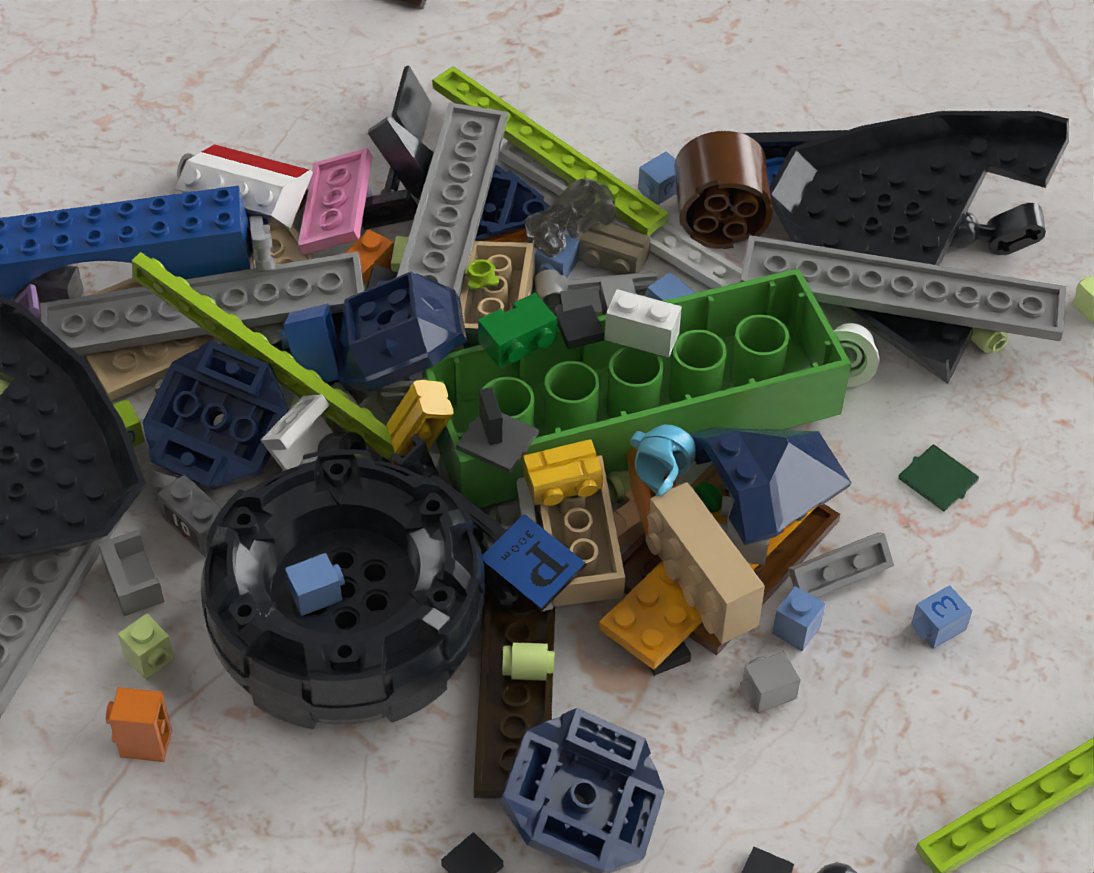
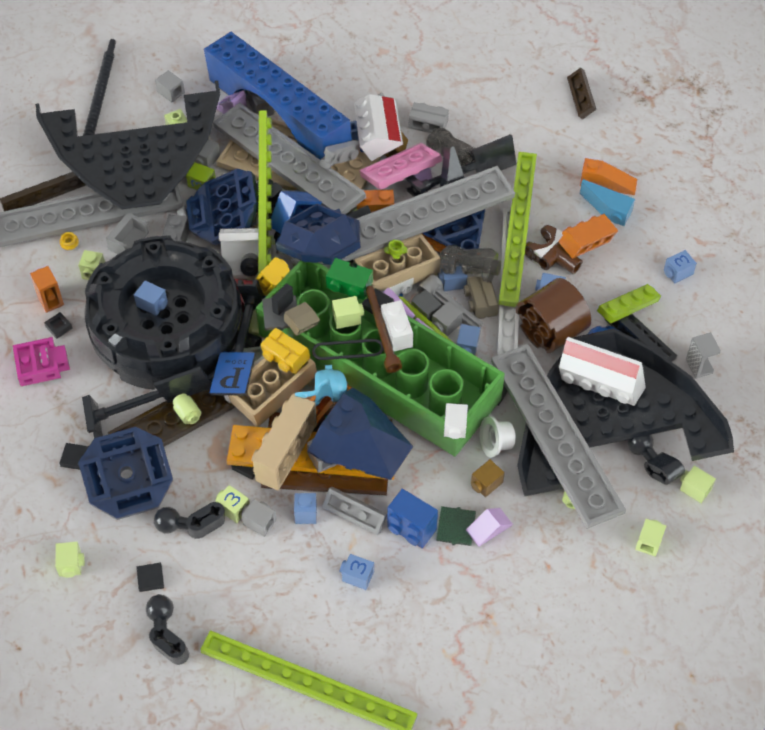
camera: 55 degrees right, 5 degrees up
(61, 647) = (69, 241): none -> yellow plate
(207, 755) = (58, 325): none -> black tile
(260, 813) = (39, 361): none -> dark pink piece
(276, 135) = (427, 117): none -> light grey brick
(324, 142) = (442, 138): none -> clear smoke animal
(430, 791) = (187, 383): none -> black piece
(538, 37) = (608, 176): none -> orange slope
(539, 416) = (301, 318): none -> dark tan piece
(570, 363) = (347, 312): none -> yellowish green brick
(581, 55) = (608, 202): none -> dark azure slope
(607, 144) = (552, 252): none -> reddish brown connector
(623, 95) = (587, 235): none -> orange brick
(636, 408) = (347, 356): none -> black piece
(691, 361) = (392, 362): none -> reddish brown piece
(693, 793) = (169, 520): none -> black beam
(723, 701) = (233, 502): none -> yellowish green brick
(736, 51) = (679, 266): none -> medium blue brick
(756, 118) = (629, 303): none -> lime plate
(844, 350) = (455, 421): none -> white brick
(855, 188) = (602, 371): none -> white slope
(888, 95) = (698, 353): none -> light grey panel
(898, 401) = (487, 478): none -> pearl gold brick
(912, 505) = (412, 518): none -> blue brick
(970, 443) = (488, 525): none -> slope
(1060, 214) = (697, 484): none -> yellowish green brick

